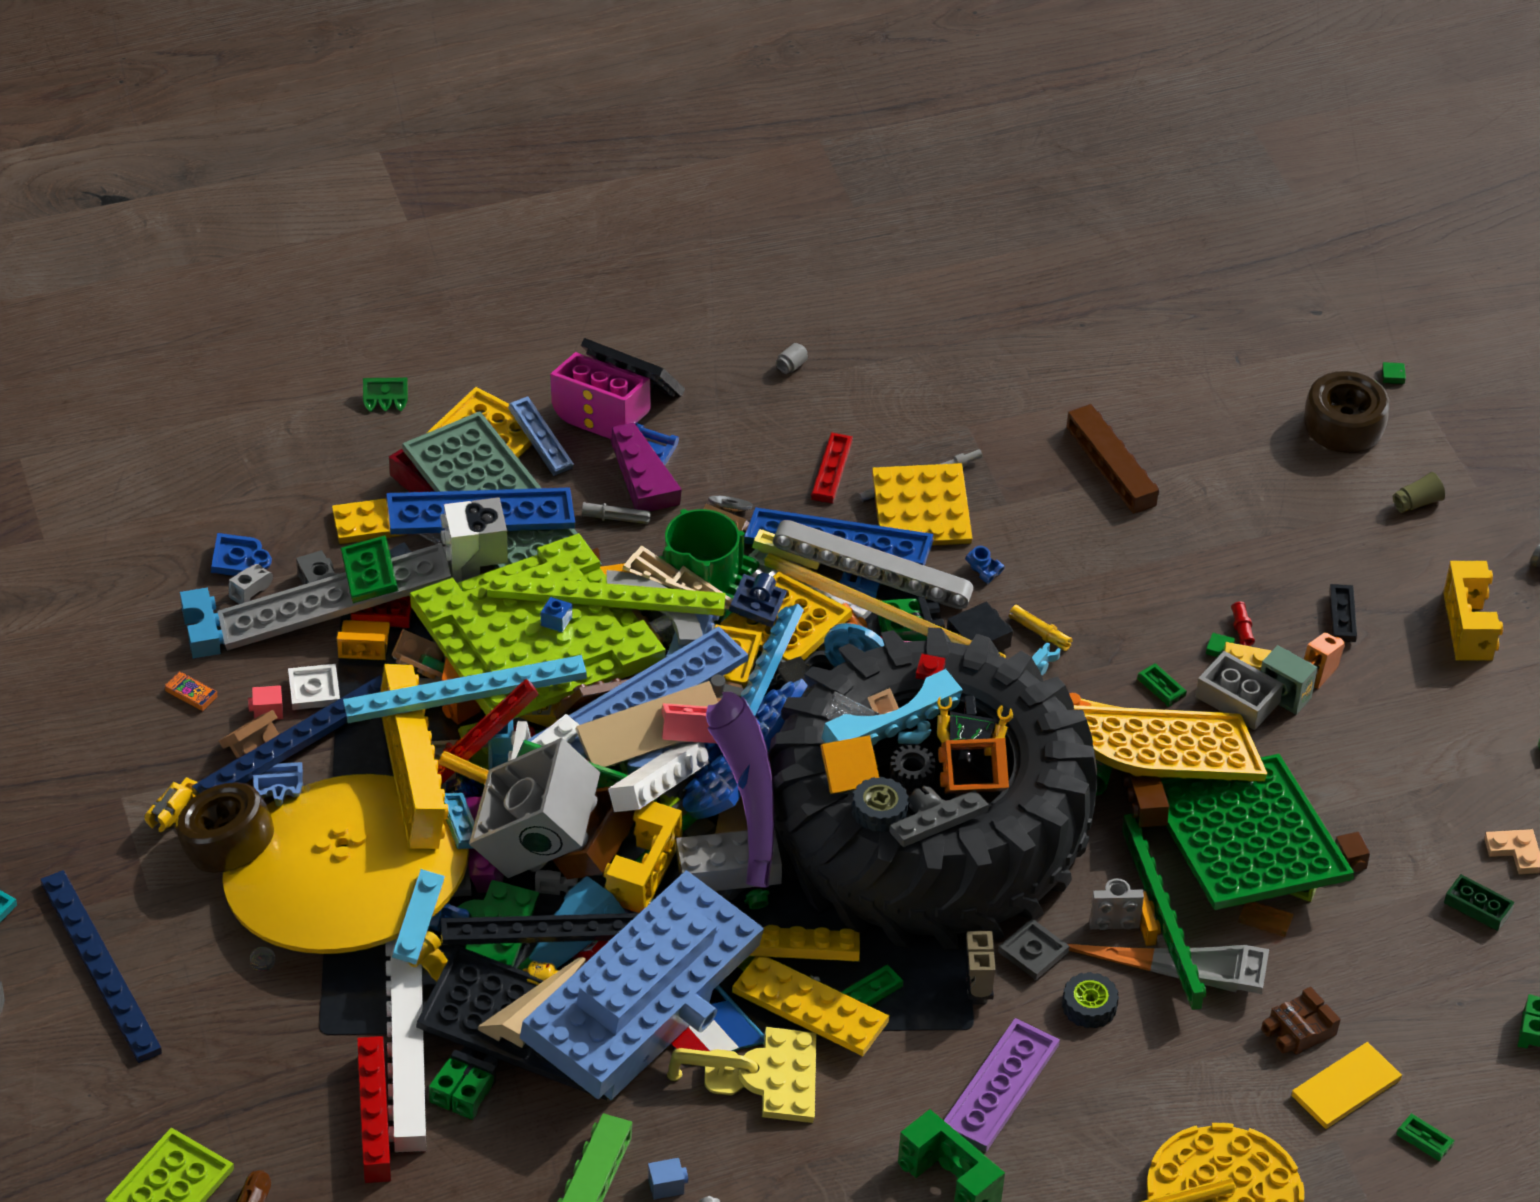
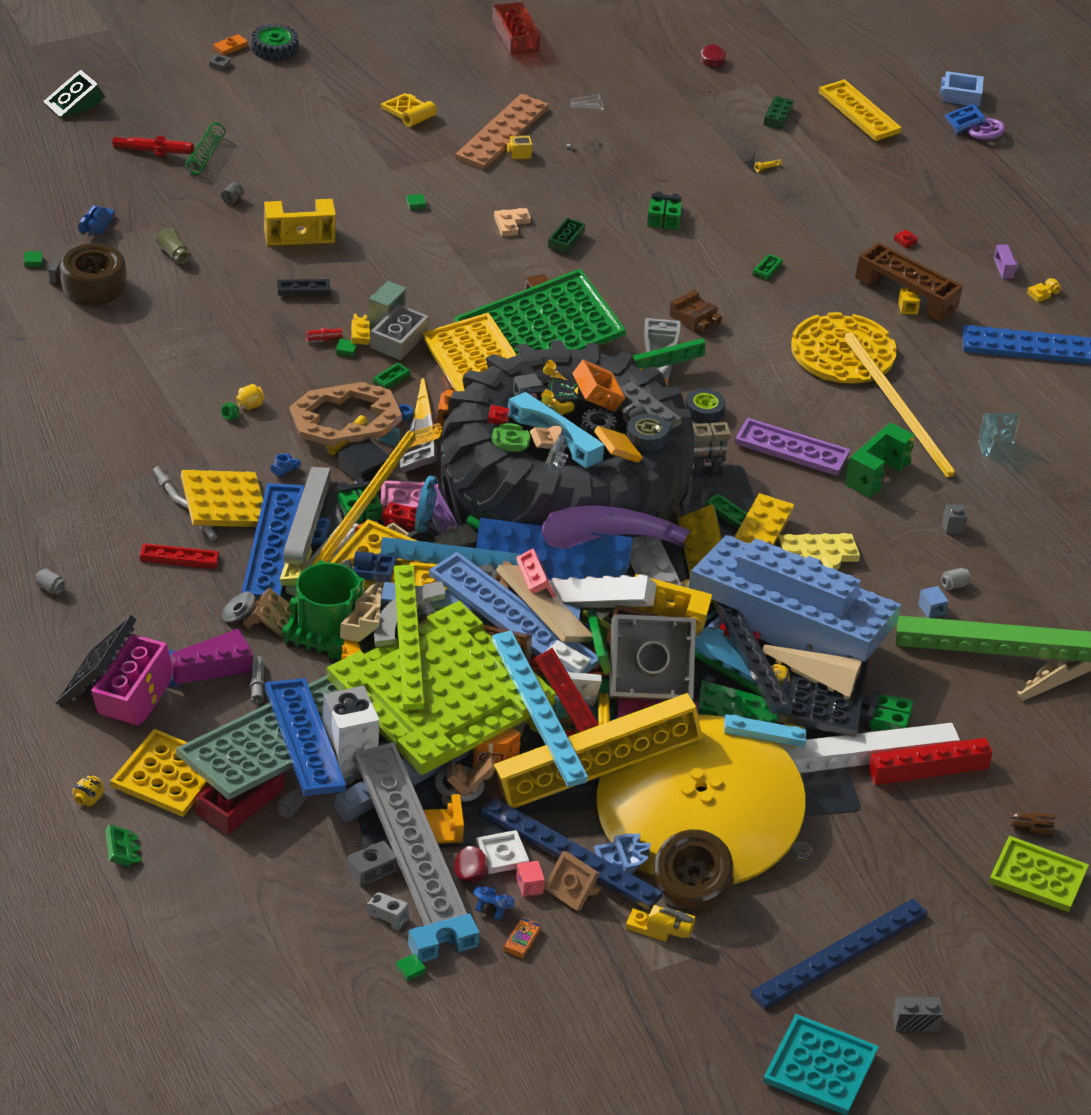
camera: 100 degrees left, 5 degrees down
(170, 597) = (410, 967): none -> green tile
(237, 553) = (351, 925): blue plate -> none
(247, 658) = (488, 895): none -> blue plate
(296, 655) = (471, 864): none -> dark red piece
(361, 521) = (287, 842): yellow plate -> none
(369, 569) = (386, 803): green tile -> none
(432, 662) = (474, 764): green tile -> none
(467, 372) = (88, 791): none -> yellow head
(540, 436) = (172, 729): medium blue tile -> none
(556, 614) = (443, 658): blue plate -> none
(887, 672) = (511, 437): none -> bright green tile
(988, 701) = (523, 382): none -> dark grey brick
(1078, 656) = (383, 405): none -> medium nougat plate
(1088, 689) = (406, 411): none -> blue tile
(1089, 526) = (230, 411): none -> green plate
(1111, 542) = (250, 397): none -> yellow head
(1112, 458) = (153, 398): reddish brown brick -> none
(1326, 653) = (357, 291): orange torso -> none
(1346, 1085) = (737, 297): yellow tile -> none
(1471, 426) = (95, 220): none -> blue plate

